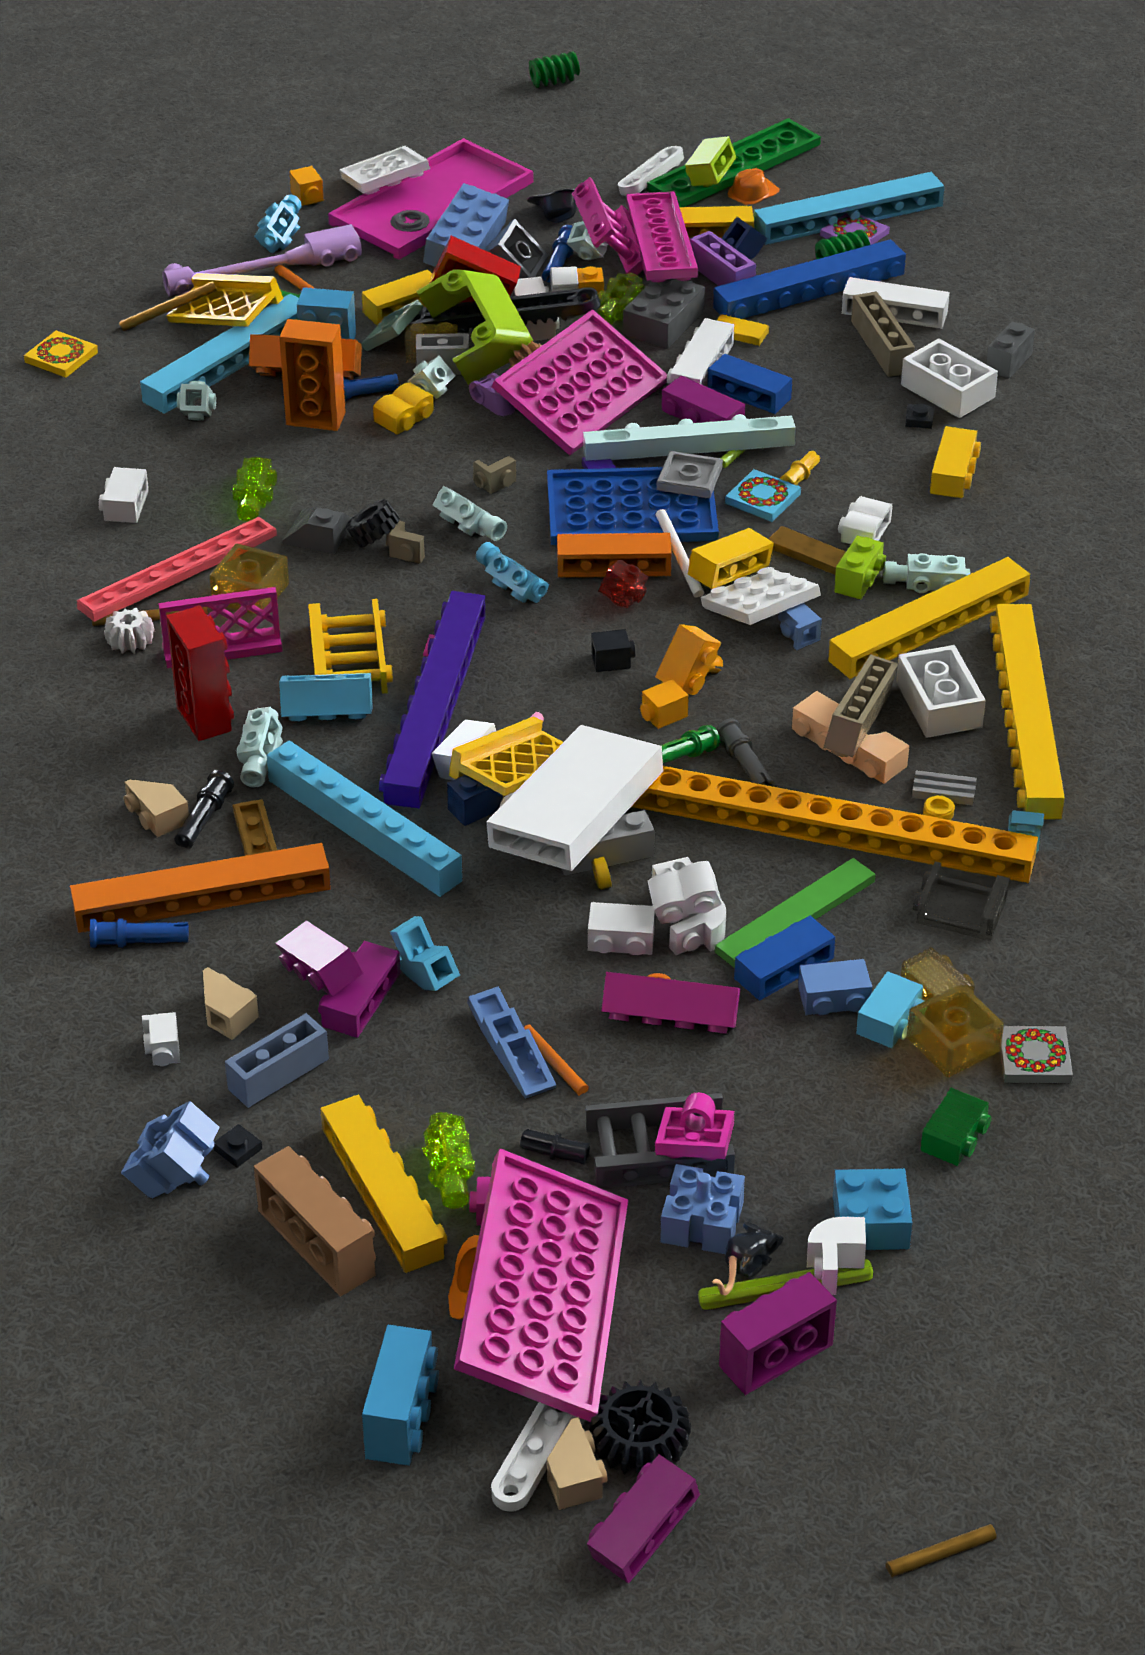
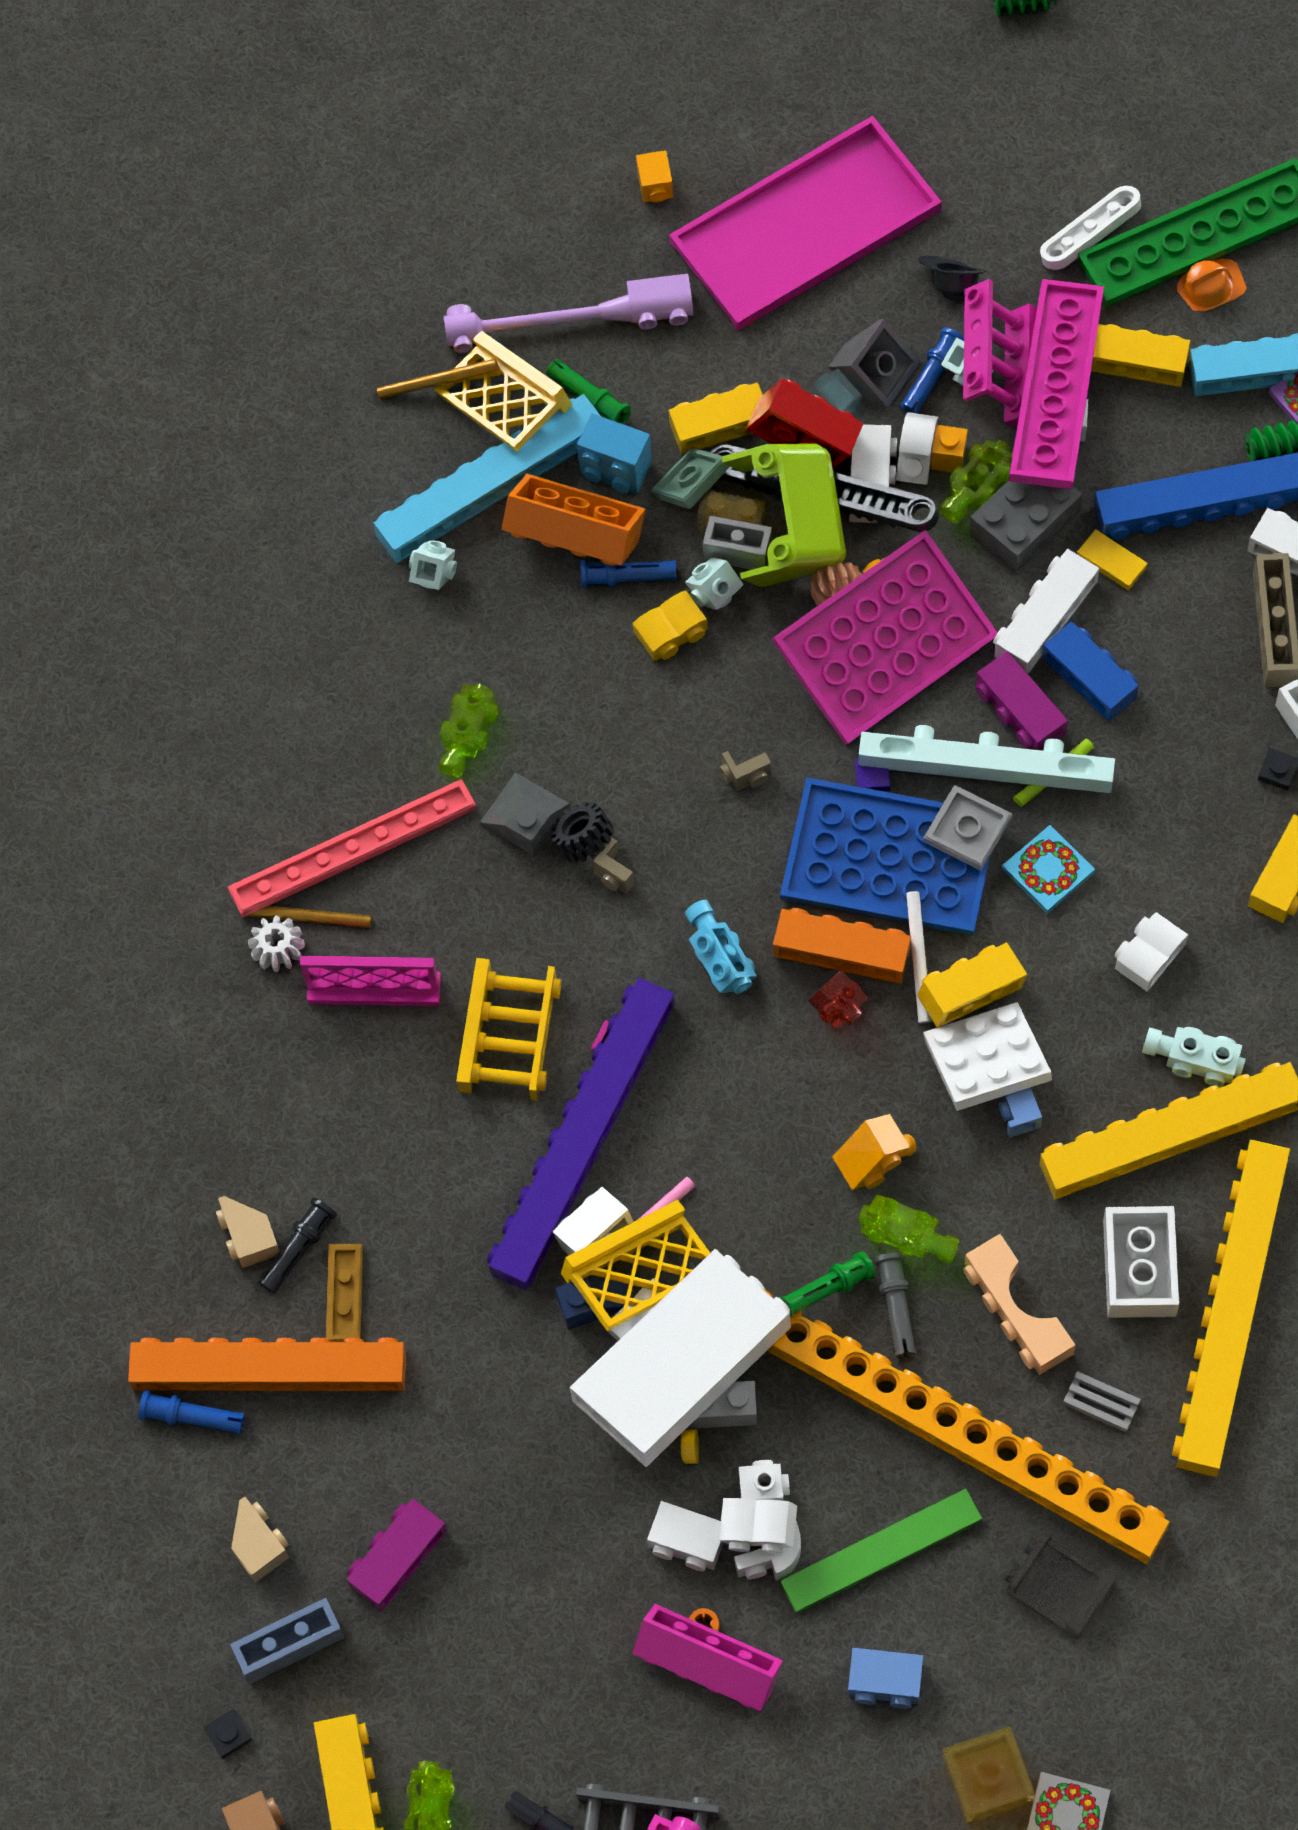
camera: 20 degrees right, 25 degrees up
(61, 353) = (299, 430): yellow tile -> none
(124, 495) = (317, 711): white brick -> none
(161, 1038) = (182, 1576): white brick -> none
(171, 1151) = (154, 1745): medium blue brick -> none
(200, 672) = (325, 1071): red brick -> none
(247, 570) = (423, 896): clear yellow brick -> none
(259, 737) = (372, 1163): light aqua brick -> none
(279, 224) = (604, 245): medium azure brick -> none
(291, 277) = (607, 357): orange bar -> none
(312, 374) = (564, 581): orange brick -> none
(318, 958) = (358, 1517): magenta brick -> none
(326, 696) = (463, 1107): medium azure brick -> none
(365, 818) = (459, 1305): medium azure brick -> none
(385, 170) = (755, 168): white plate -> none
(421, 222) = (773, 253): dark grey gear -> none
(422, 960) = (470, 1531): medium azure brick -> none
(469, 515) = (695, 834): light aqua brick -> none
(472, 217) = (825, 313): medium blue brick -> none
(484, 394) = (778, 613): medium lavender piece -> none
(511, 1042) = (532, 1666): medium blue slope -> none
(558, 1063) = (571, 1697): orange bar -> none
(612, 650) = (797, 1101): black brick -> none
(664, 704) = (829, 1203): light orange brick -> none
(710, 161) = (1161, 248): lime brick -> none
(720, 260) = (1120, 440): medium lavender brick -> none
(730, 703) = (903, 1225): none -> clear neon green brick
(744, 238) = (1154, 403): dark blue slope -> none
(778, 957) = (845, 1619): blue brick -> none
(801, 468) = (1105, 836): yellow axle -> none
(806, 549) = (1073, 979): pearl gold tile -> none
(859, 567) = (1116, 1030): lime brick -> none
(860, 706) = (1034, 1286): dark tan brick -> none
(887, 1009) = (933, 1723): medium azure brick -> none
(934, 973) = (995, 1696): clear yellow brick -> none
(939, 807) = (1085, 1432): yellow tile -> none
(1026, 823) = (1167, 1489): medium azure slope -> none

